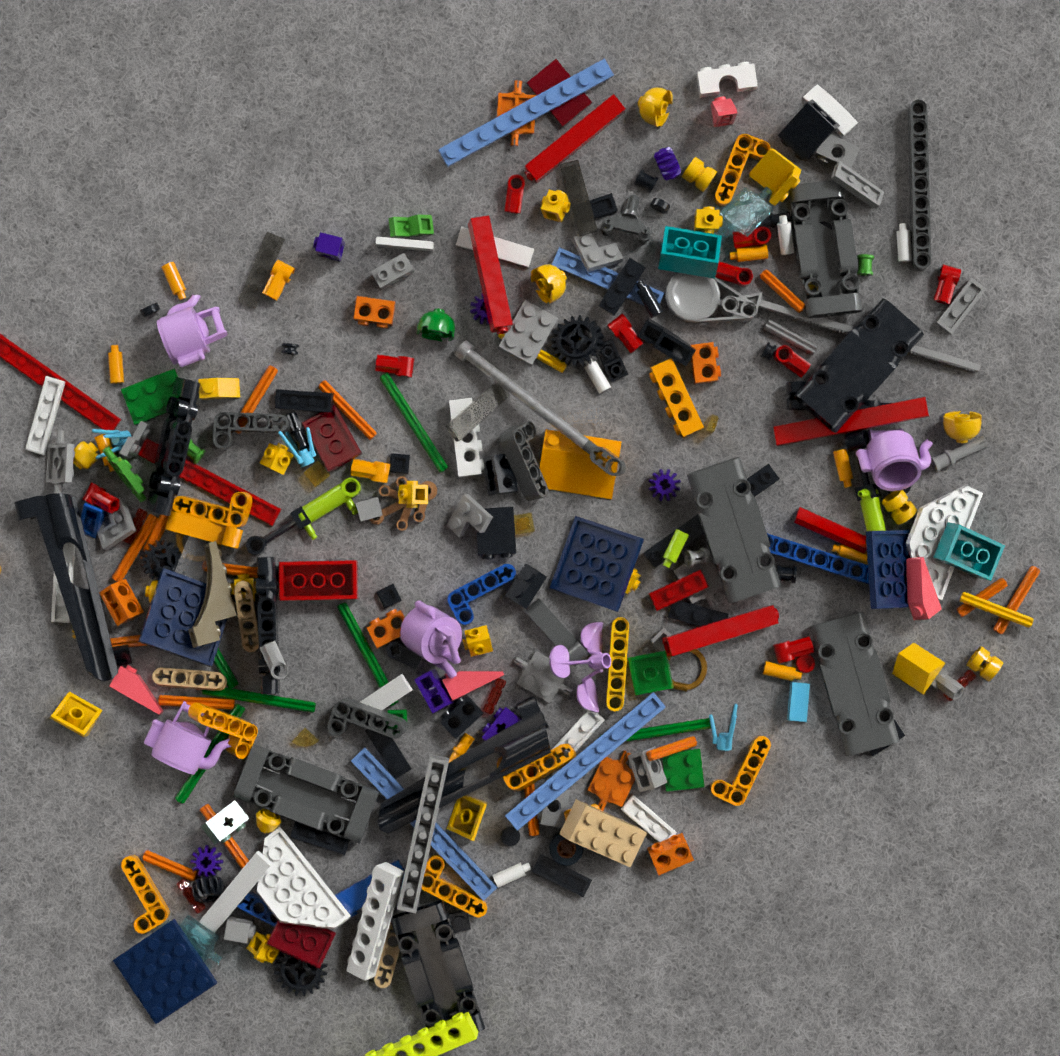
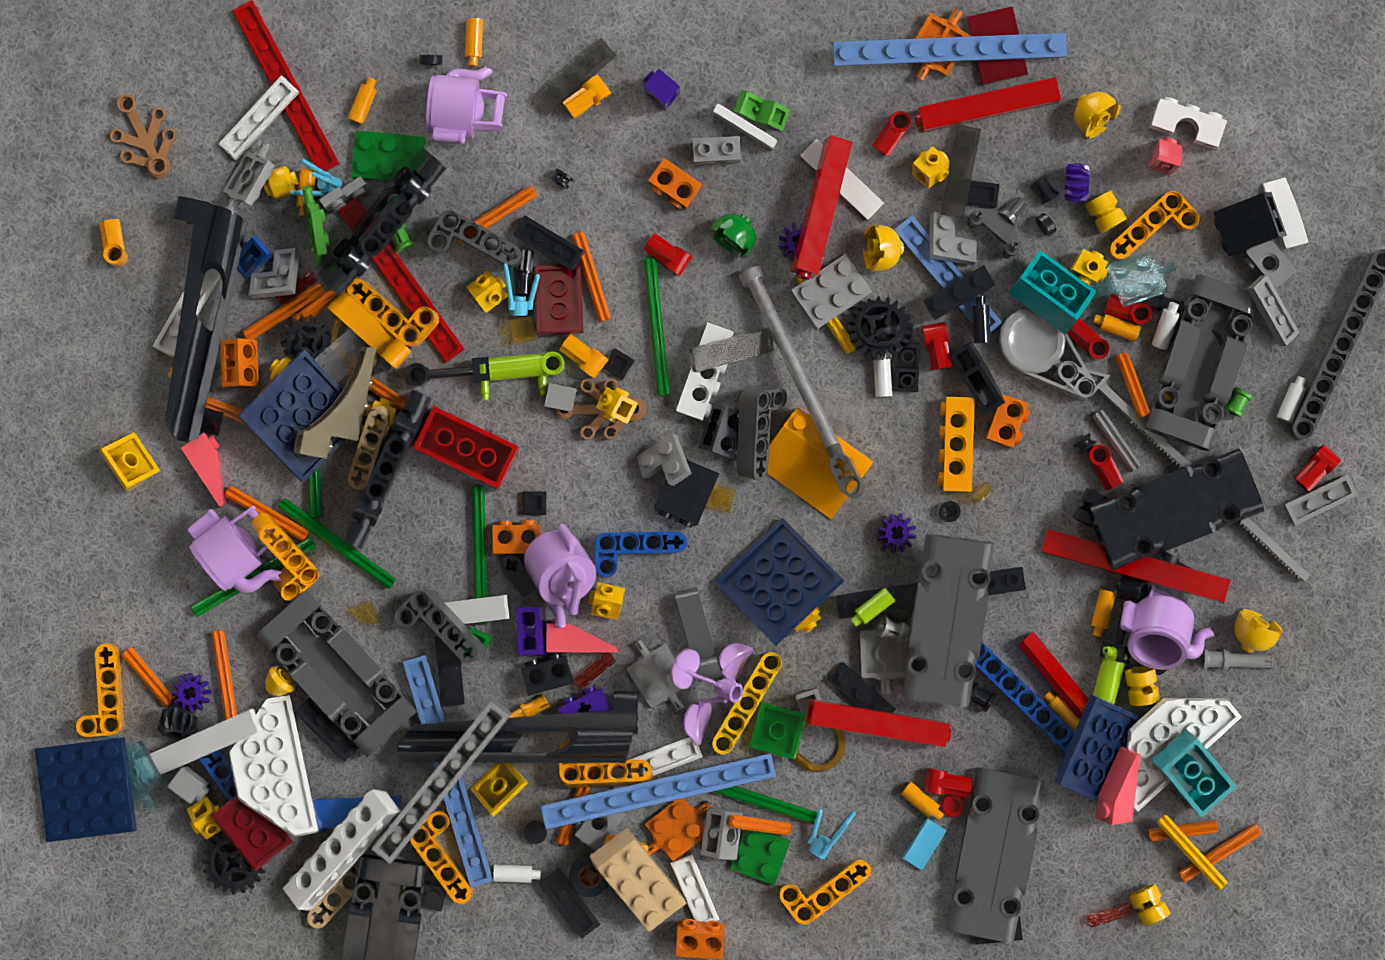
camera: 25 degrees right, 0 degrees up
(100, 498) = (273, 236): red piece -> none
(187, 892) = (152, 716): clear red axle -> none
(189, 679) = (271, 485): tan beam -> none
(219, 388) = (463, 183): yellow slope -> none
(233, 815) = (245, 661): brick -> none
(273, 659) = (375, 509): light grey piece -> none
(526, 586) = (689, 567): black brick -> none
(678, 590) = (854, 655): red tile -> none
(691, 445) = (948, 504): none -> black bush
(776, 174) = (1191, 255): yellow bracket -> none
(917, 667) = (1073, 871): yellow slope -> none
(948, 685) = (1093, 901): light grey piece -> none

